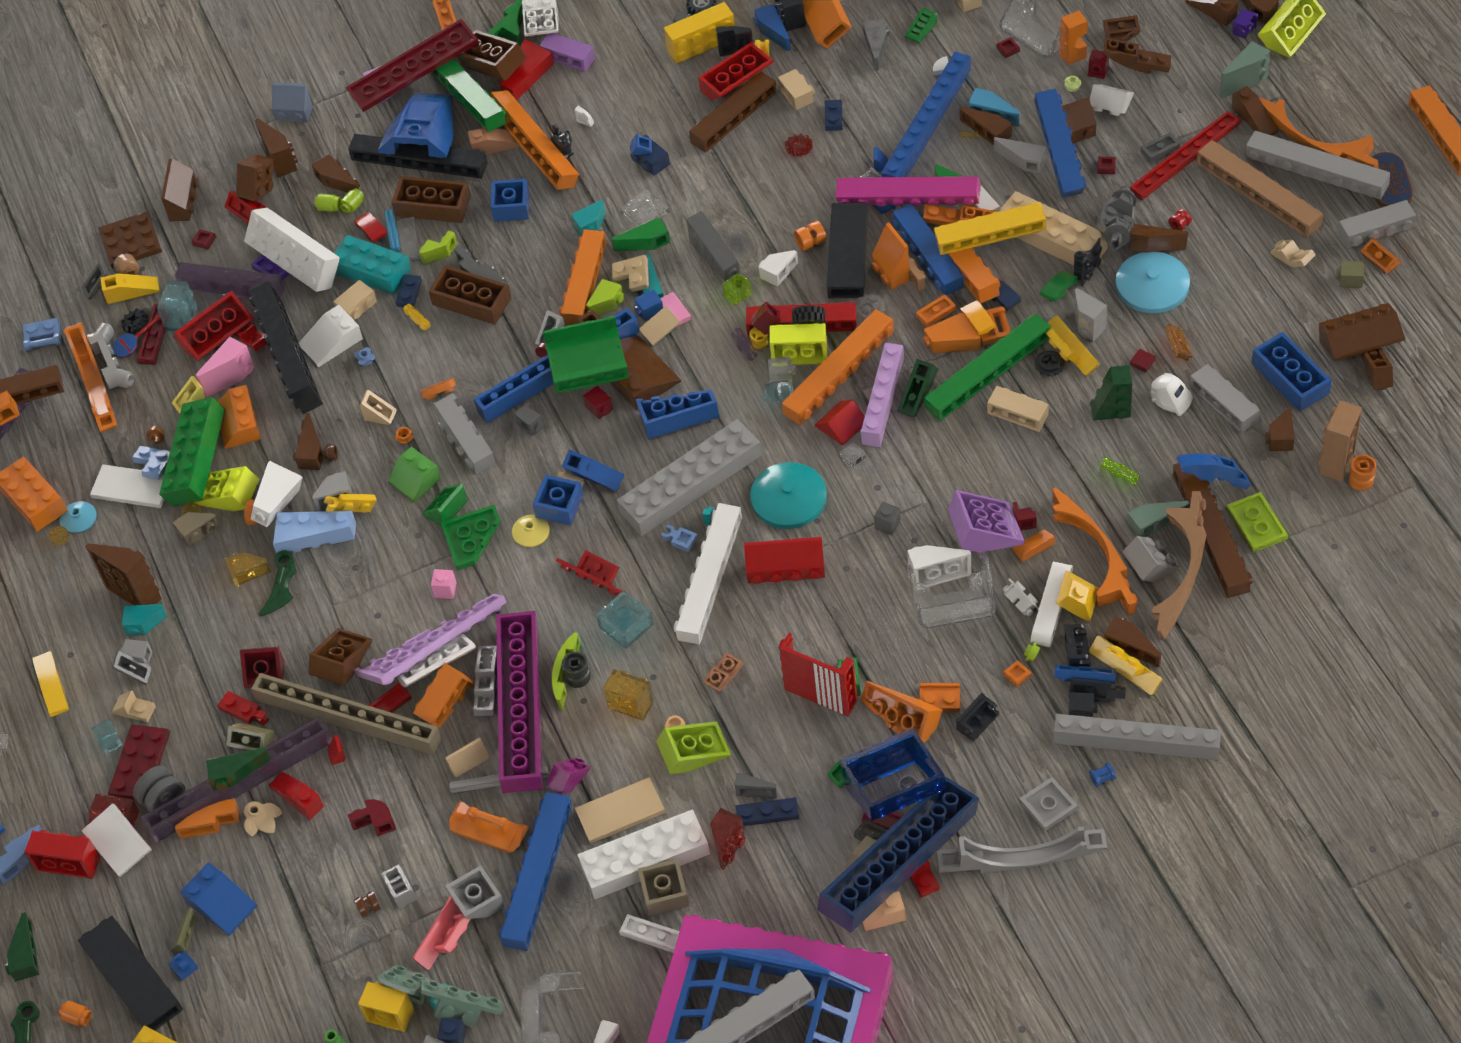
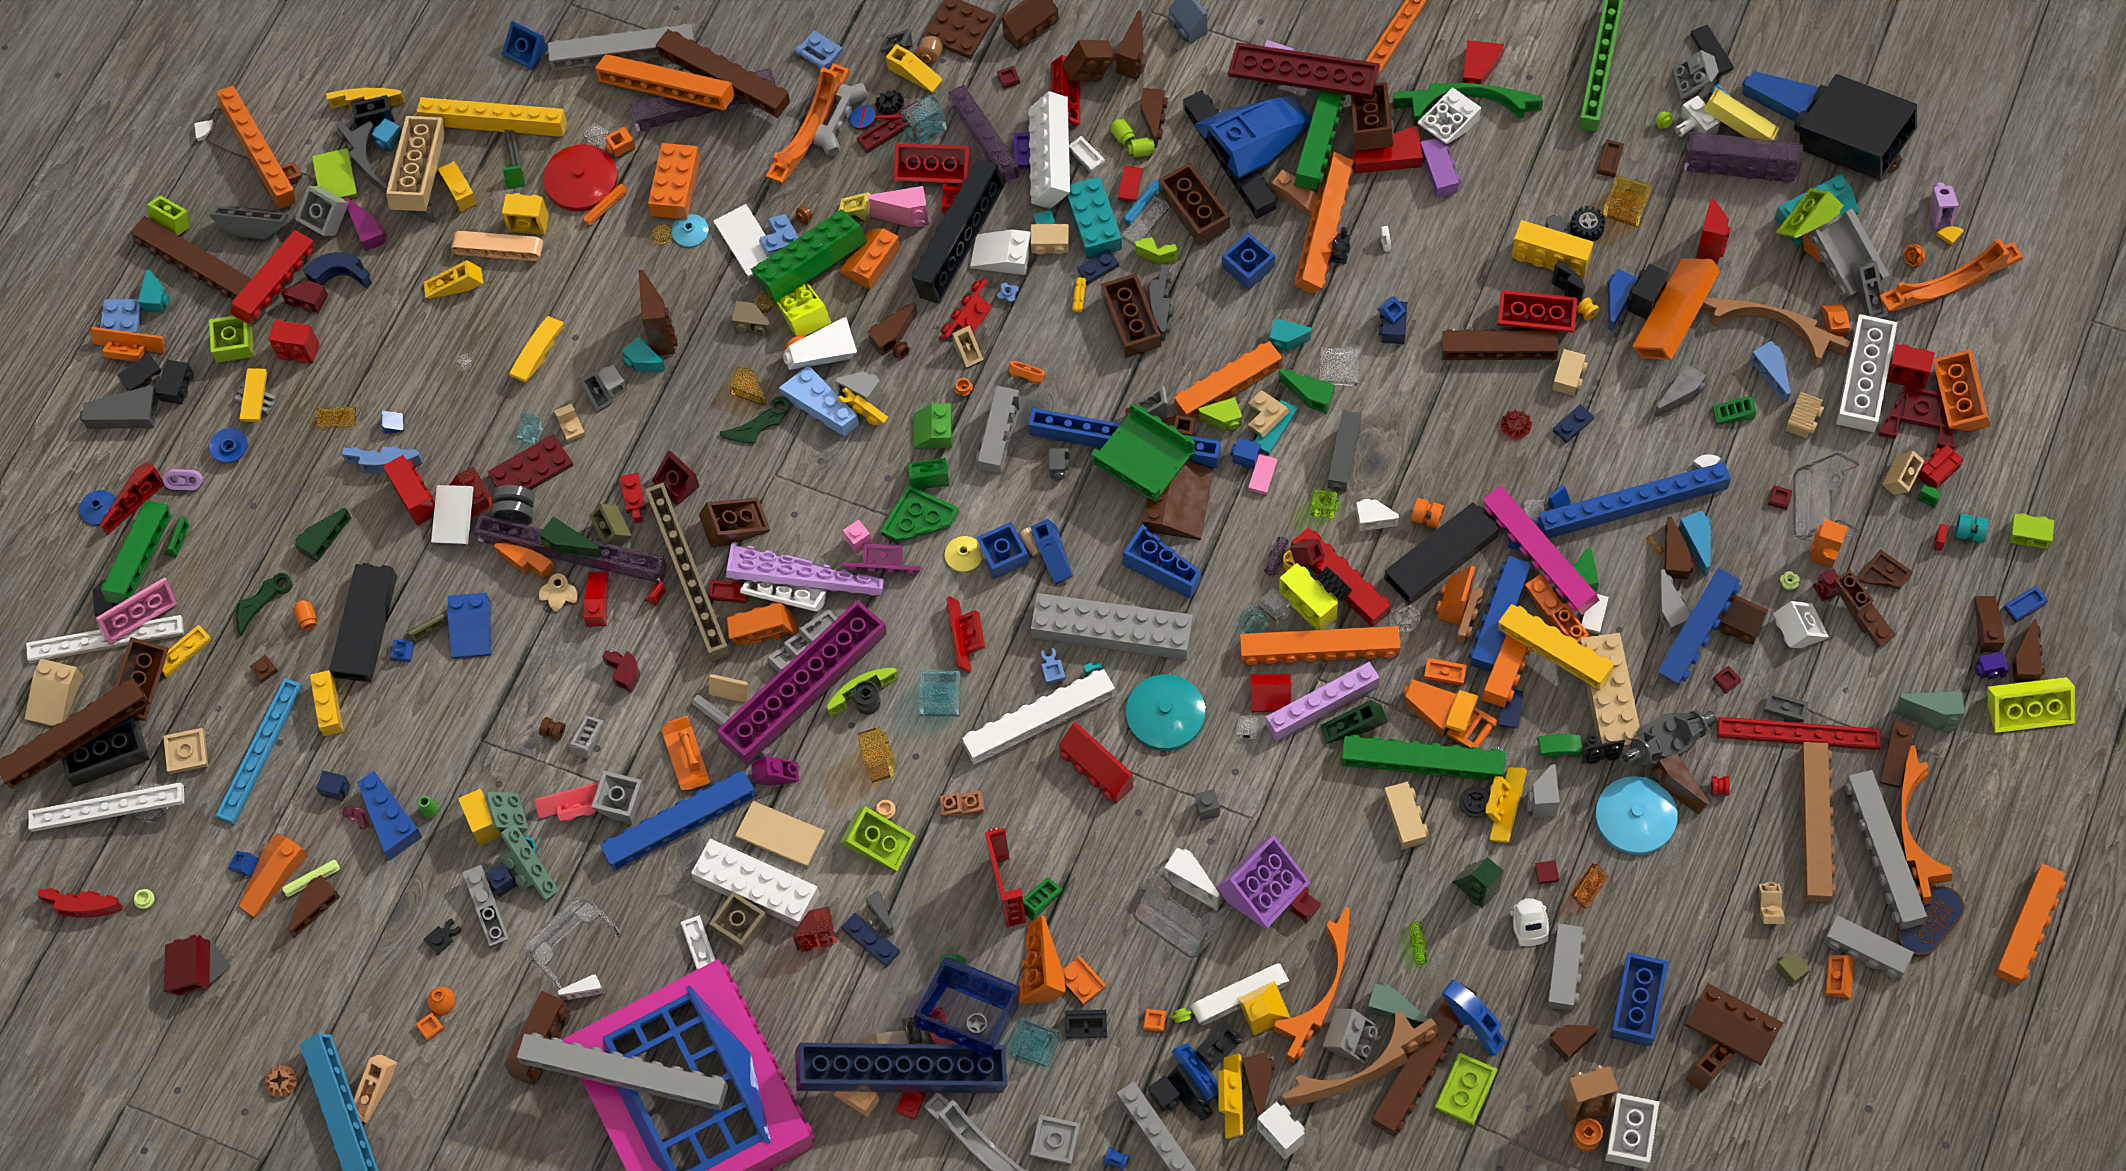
camera: 45 degrees right, 10 degrees up
(325, 237) = (1086, 154): none -> white tile
(334, 293) = (1044, 217): none -> teal tile
(351, 388) = (970, 313): none -> red bracket
(476, 580) = (882, 556): none -> magenta bracket
(598, 402) = (1120, 498): dark red brick -> none
(659, 326) = (1233, 478): tan slope -> none
(959, 758) = (1035, 1042): none -> clear light blue slope
(1014, 592) = (1228, 957): white hinge -> none
(1034, 545) = (1286, 935): orange slope -> none
(1183, 650) = (1281, 1130): none -> white brick
(1386, 444) = (1632, 1131): none -> white brick

